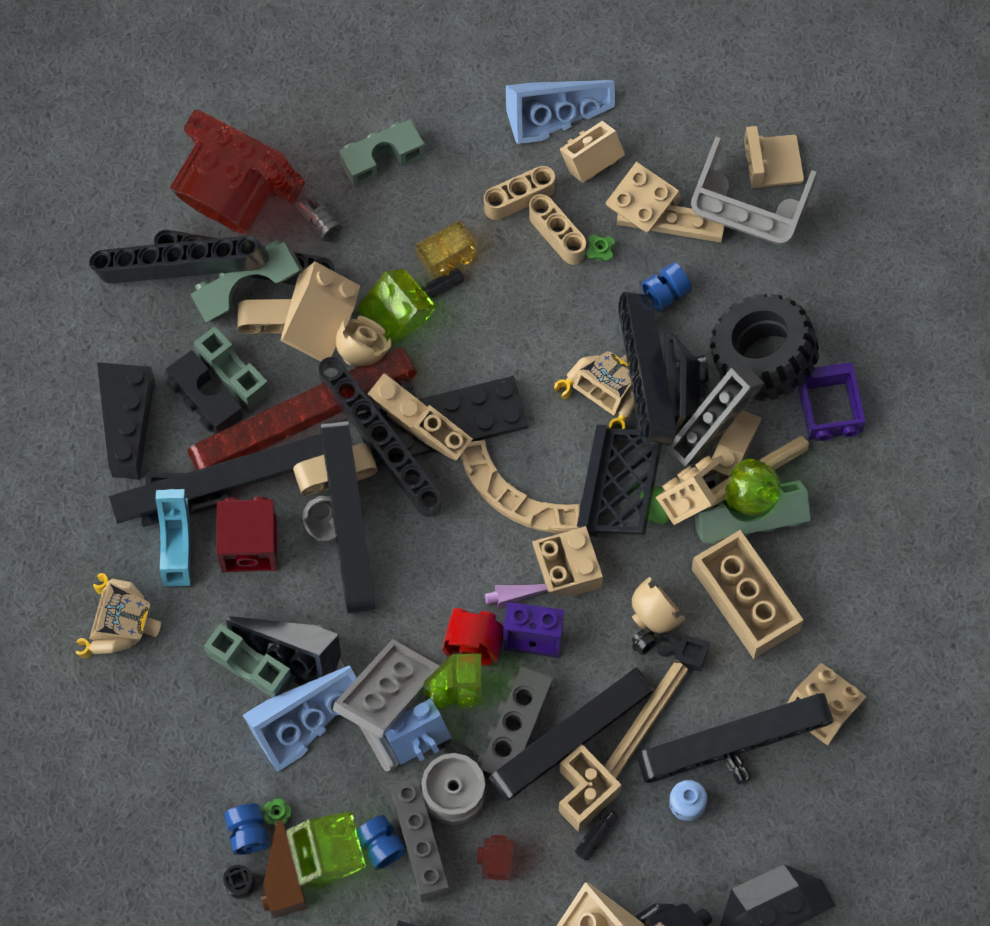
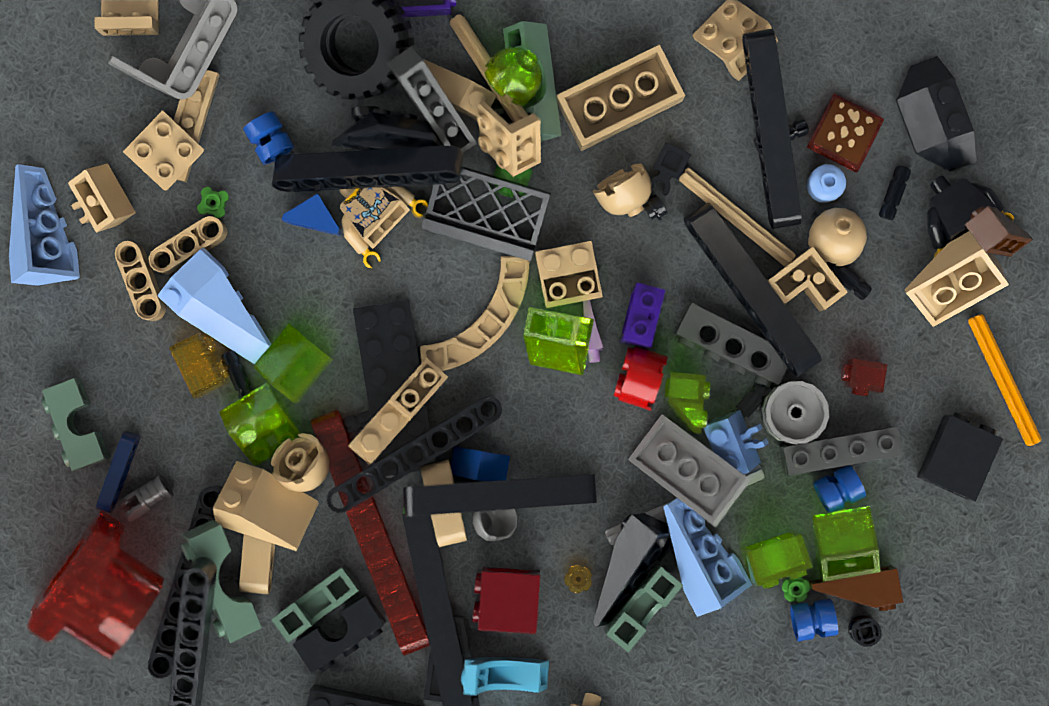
camera: 85 degrees left, 20 degrees up
(266, 599) = (570, 579): none -> clear yellow plate
(307, 784) = (776, 558): none -> clear neon green brick
(341, 191) = (118, 471): none -> dark blue beam
(375, 504) = (479, 464): none -> blue slope
(454, 329) = (293, 363): none -> clear neon green slope
(503, 557) = (557, 340): none -> clear neon green slope
(507, 245) = (208, 301): none -> light blue wedge
(599, 332) = (313, 215): none -> blue slope
(635, 817) = (838, 236): none -> tan cylinder
(688, 874) = (894, 192): none -> black axle
(743, 818) = (845, 133): none -> slope

